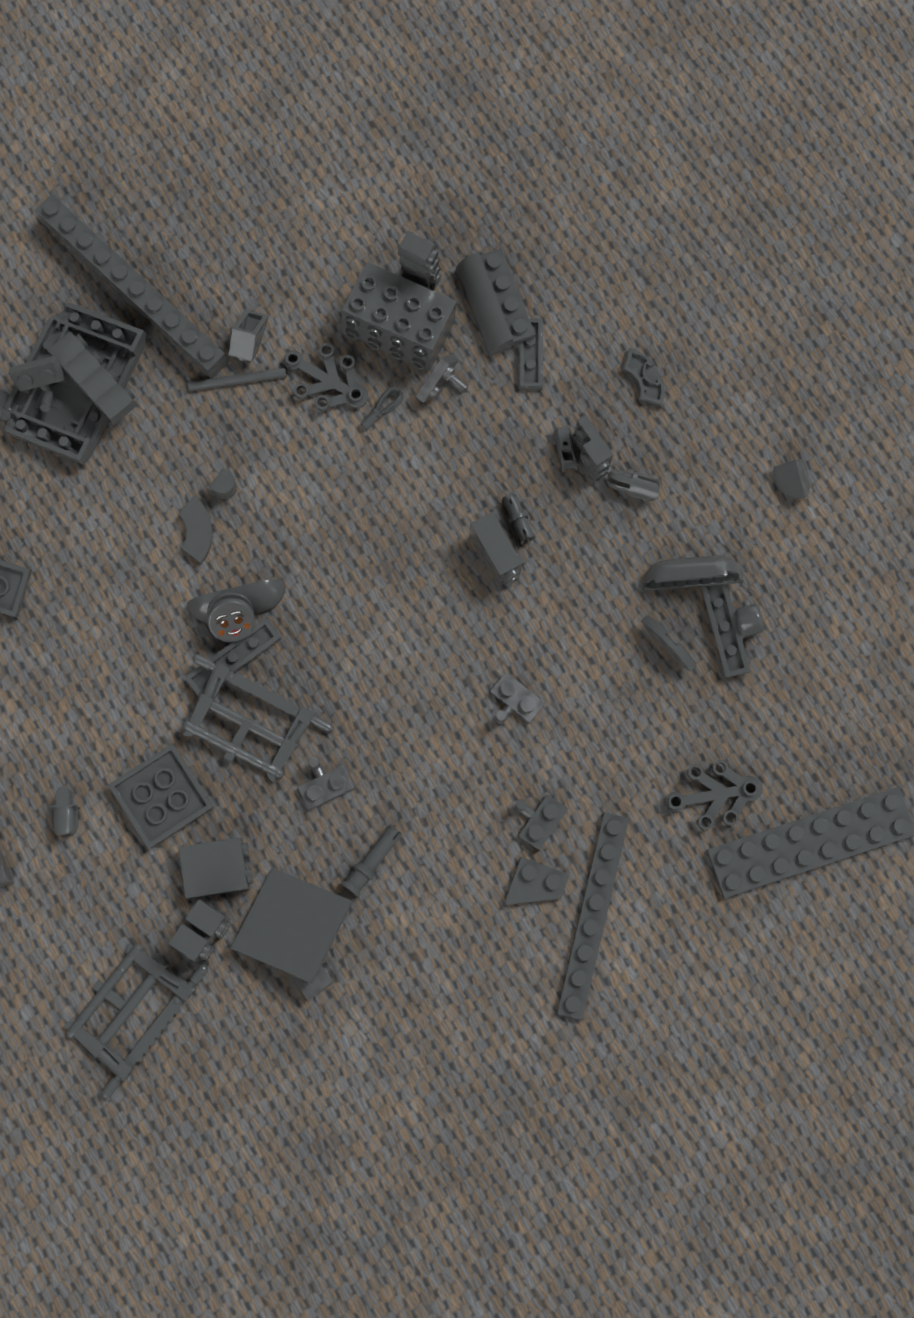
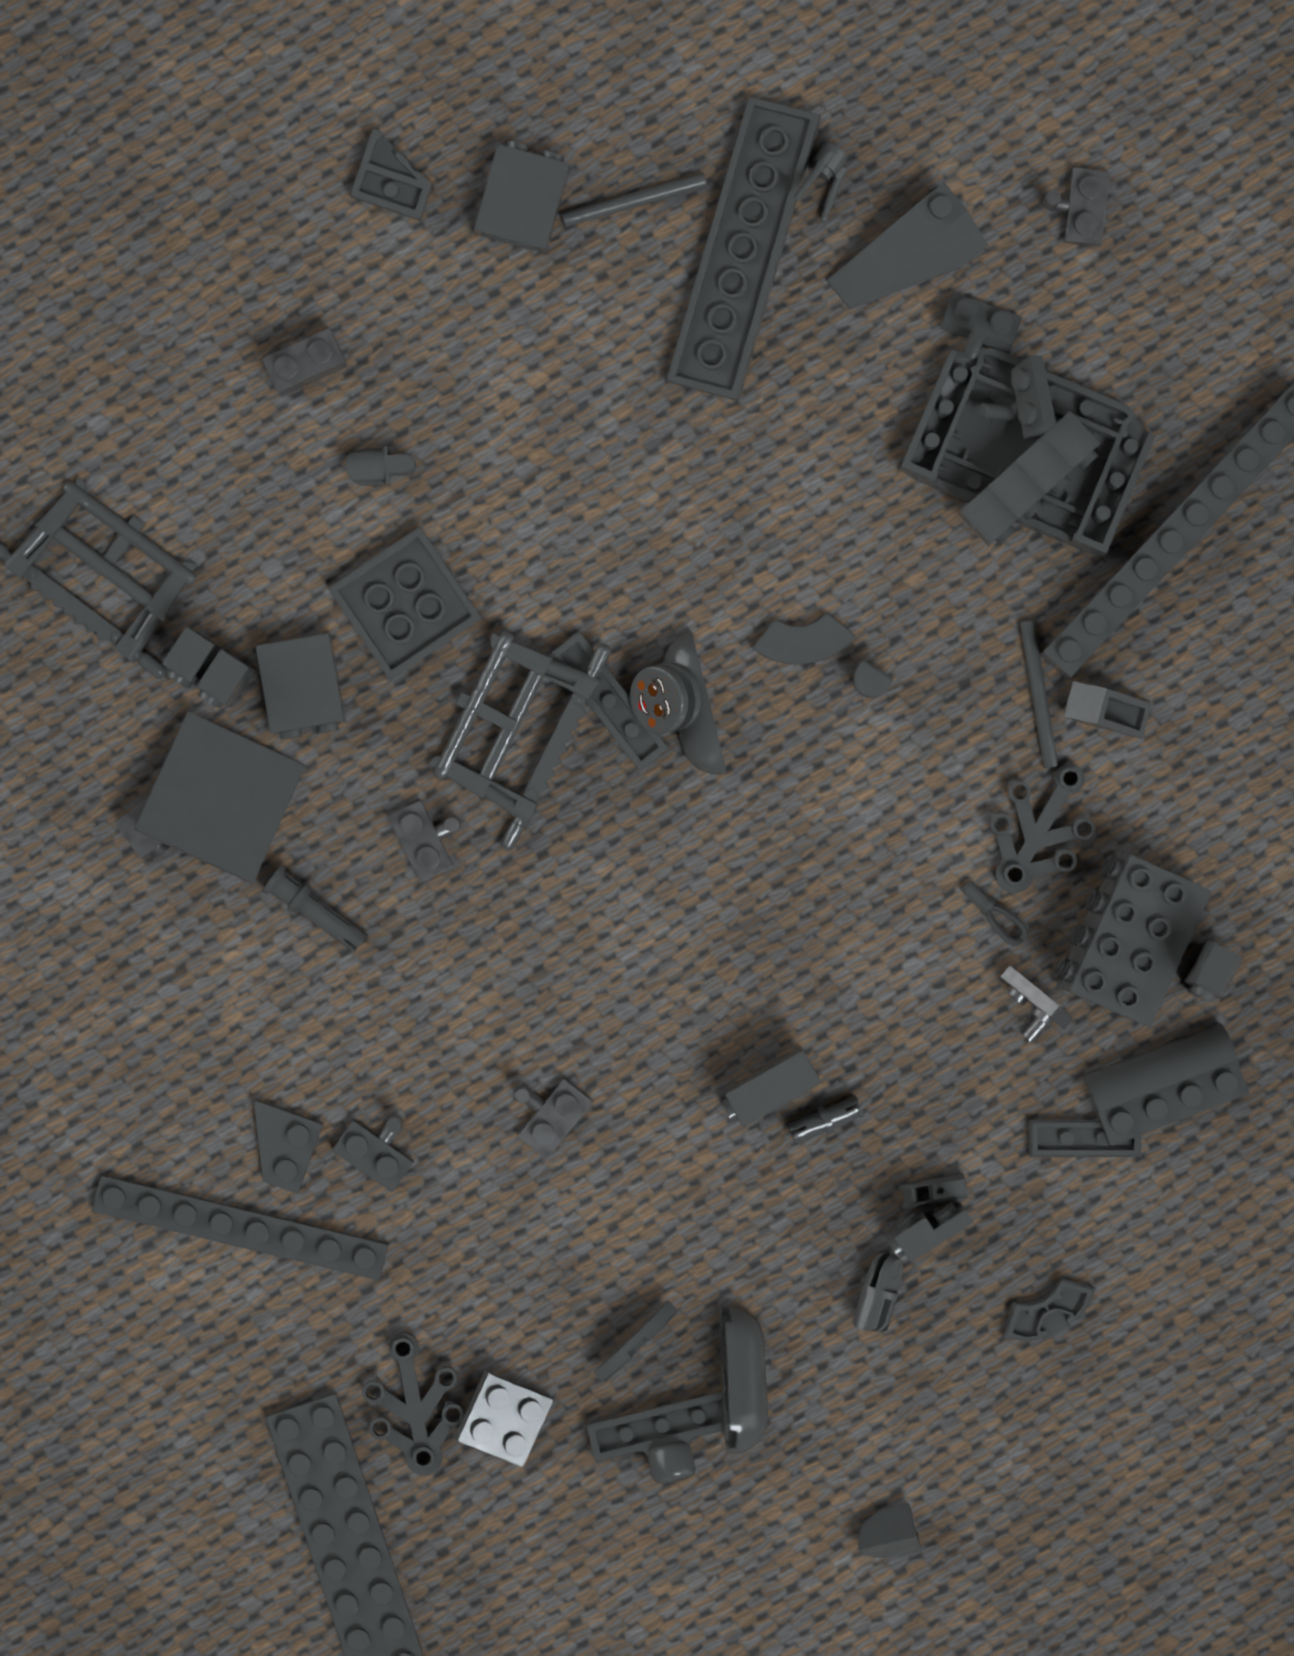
camera: 95 degrees right, 10 degrees up
(722, 733) = (503, 1418): none -> plate

